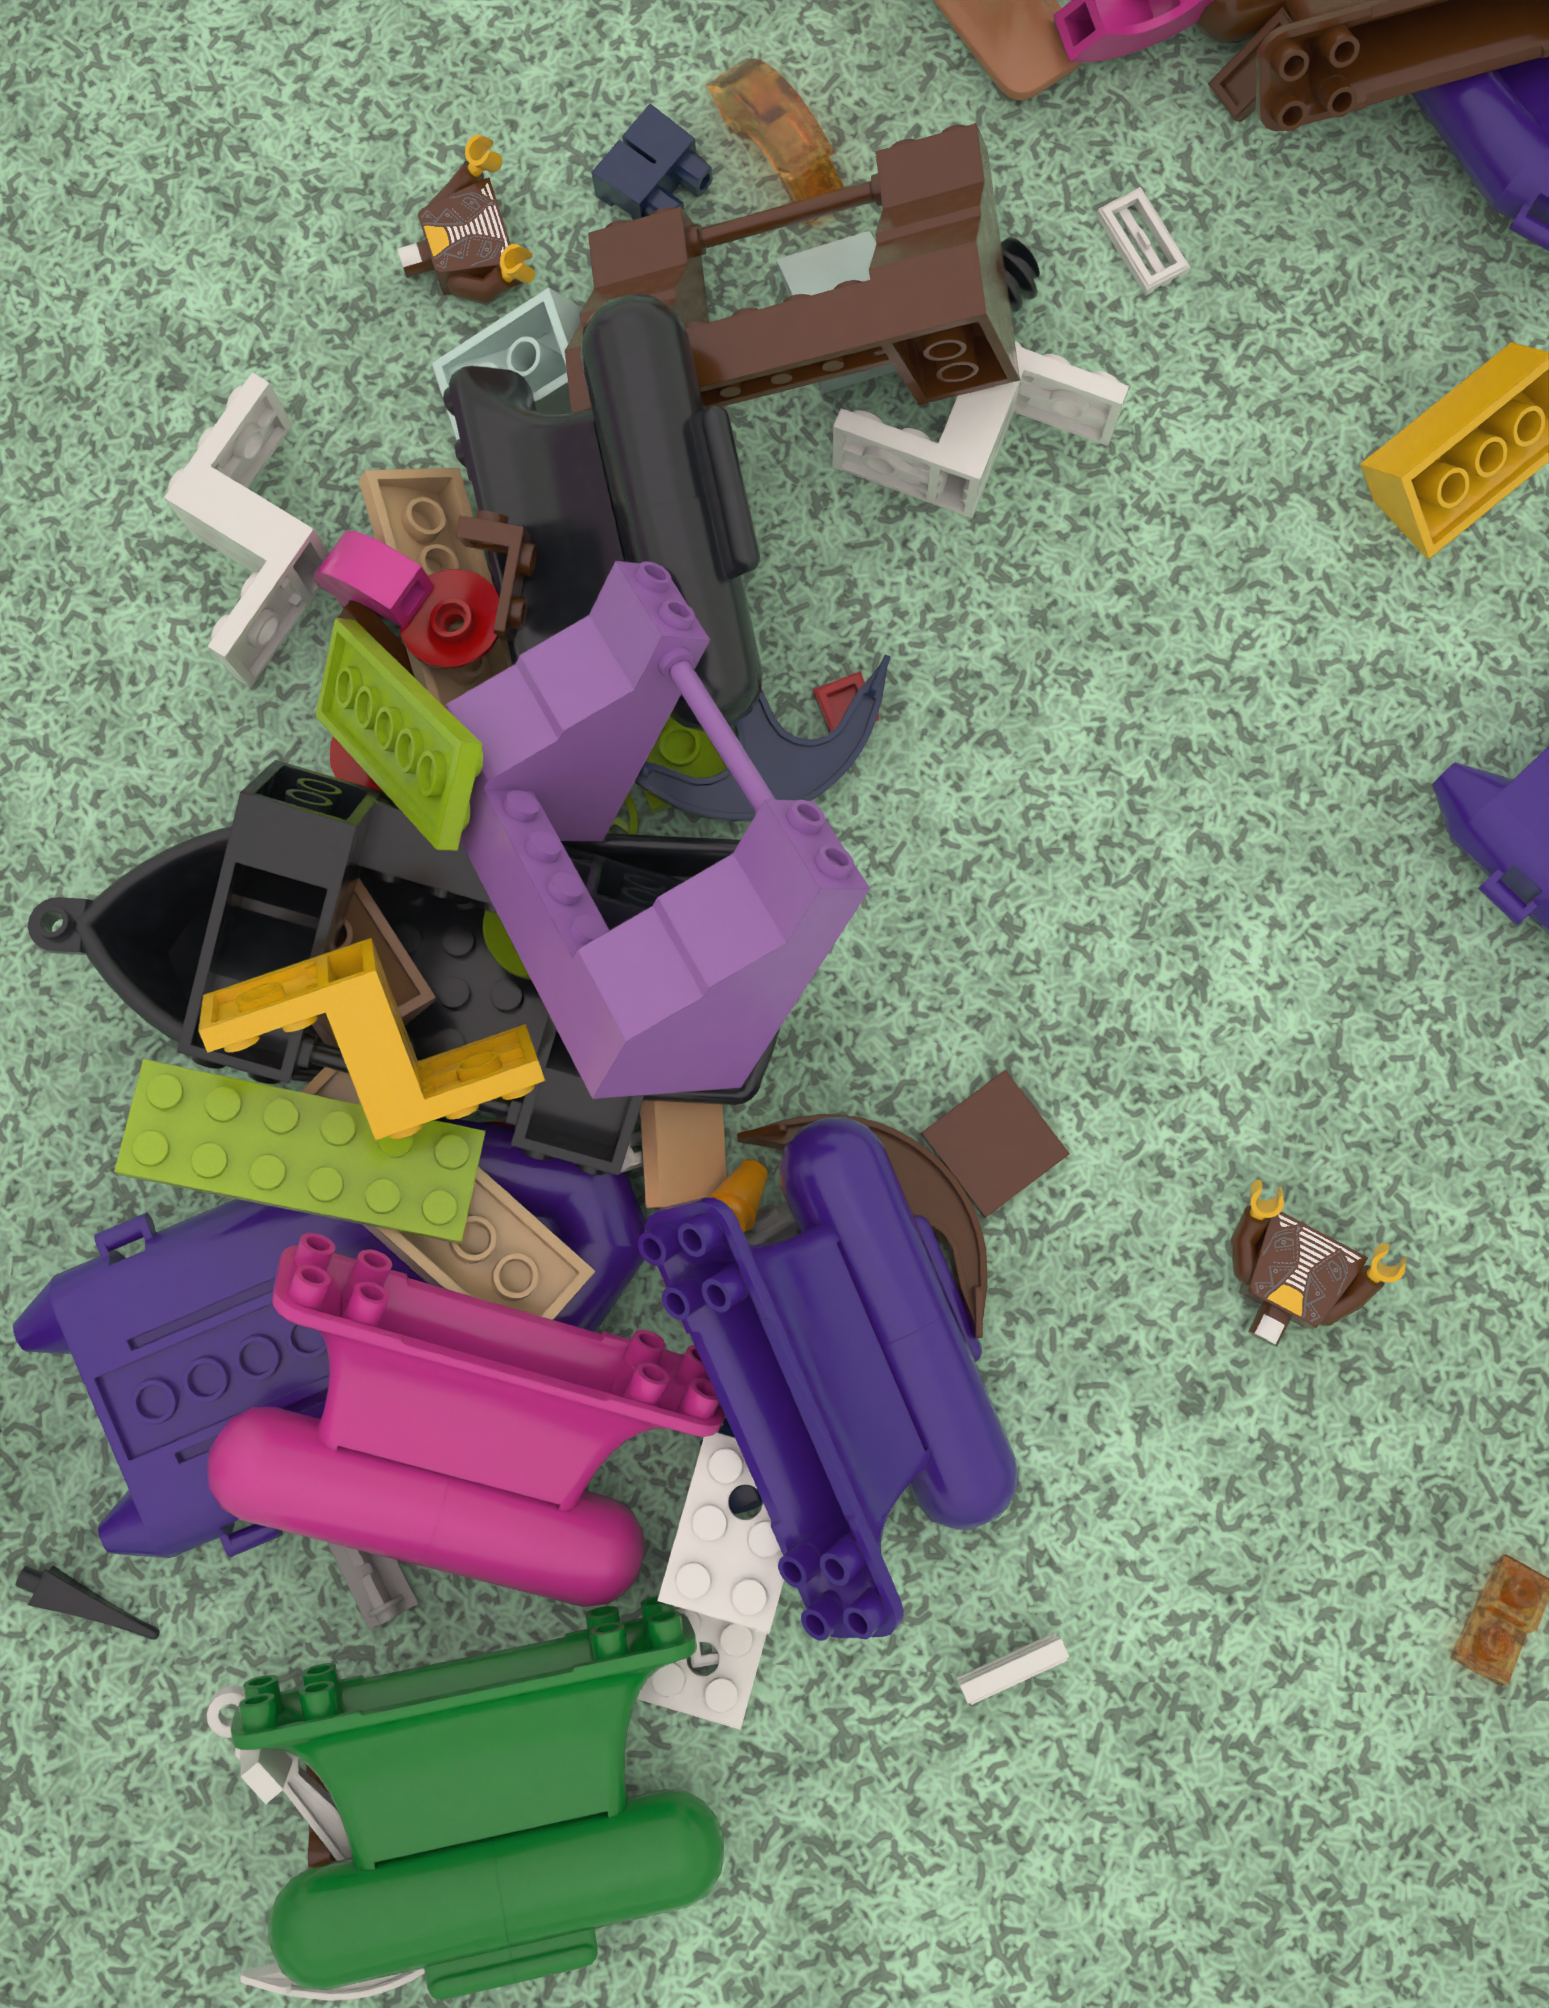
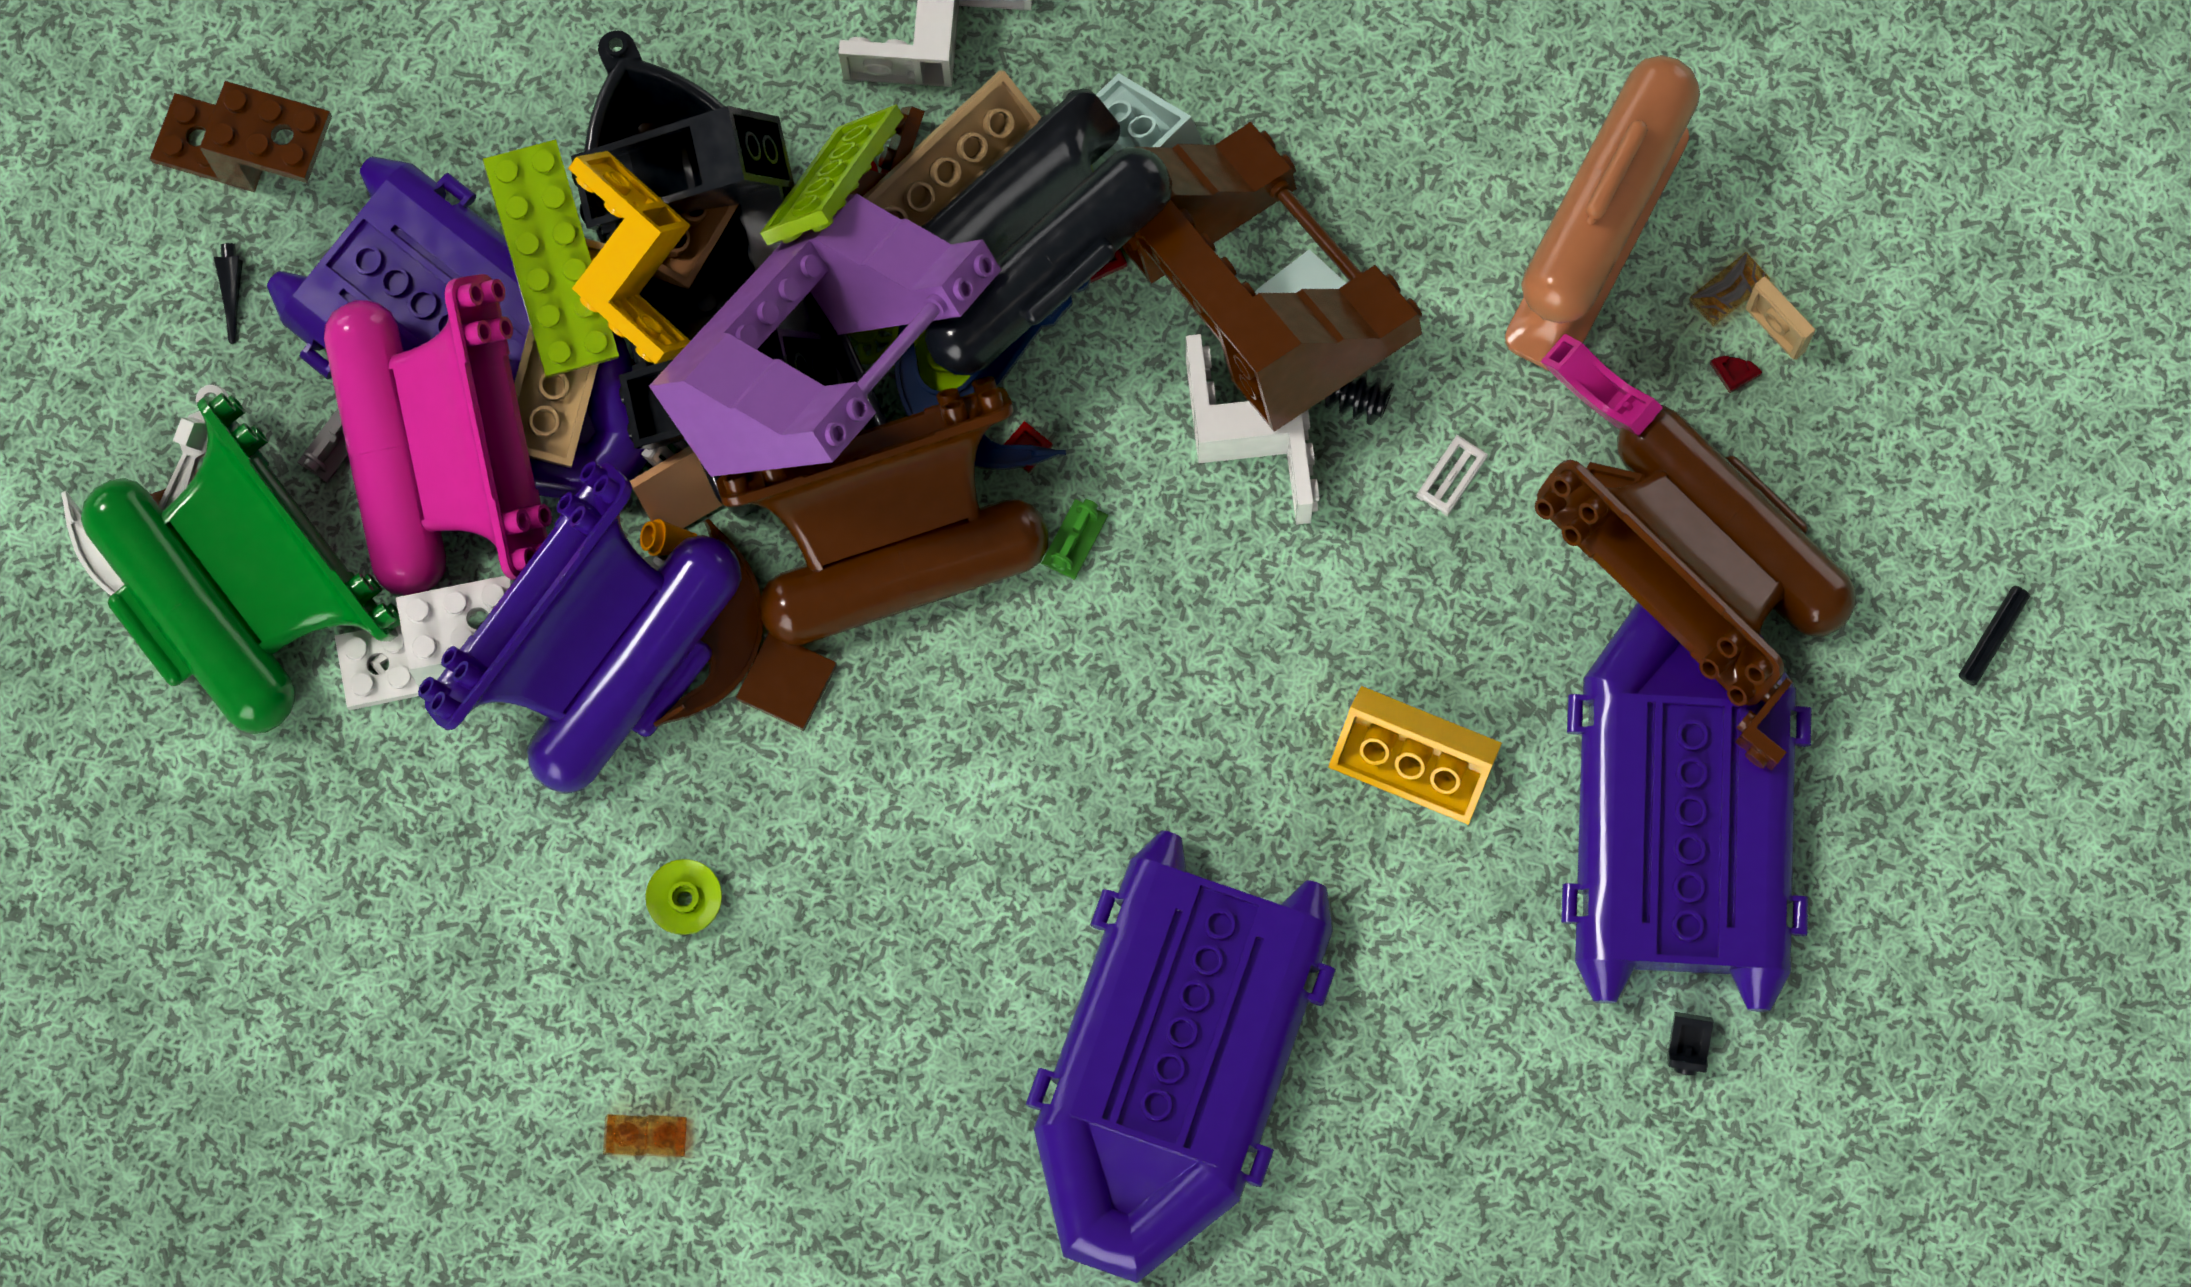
camera: 60 degrees right, 5 degrees down
(374, 576) = (933, 113): dark pink arch -> none
(455, 597) = (928, 159): red dish -> none
(468, 235) = (1211, 49): reddish brown torso -> none
(494, 534) = (984, 191): reddish brown bracket -> none
(650, 166) = (1335, 148): dark blue hips -> none
(772, 113) = (1387, 204): clear orange arch -> none
(934, 864) = (891, 521): none -> reddish brown piece
(993, 705) = (1075, 538): none -> bright green hinge
(1013, 1668) = (464, 848): white tile -> none
(1246, 1417) = (678, 878): none -> lime dish
(1299, 1270) = (798, 900): reddish brown torso -> none

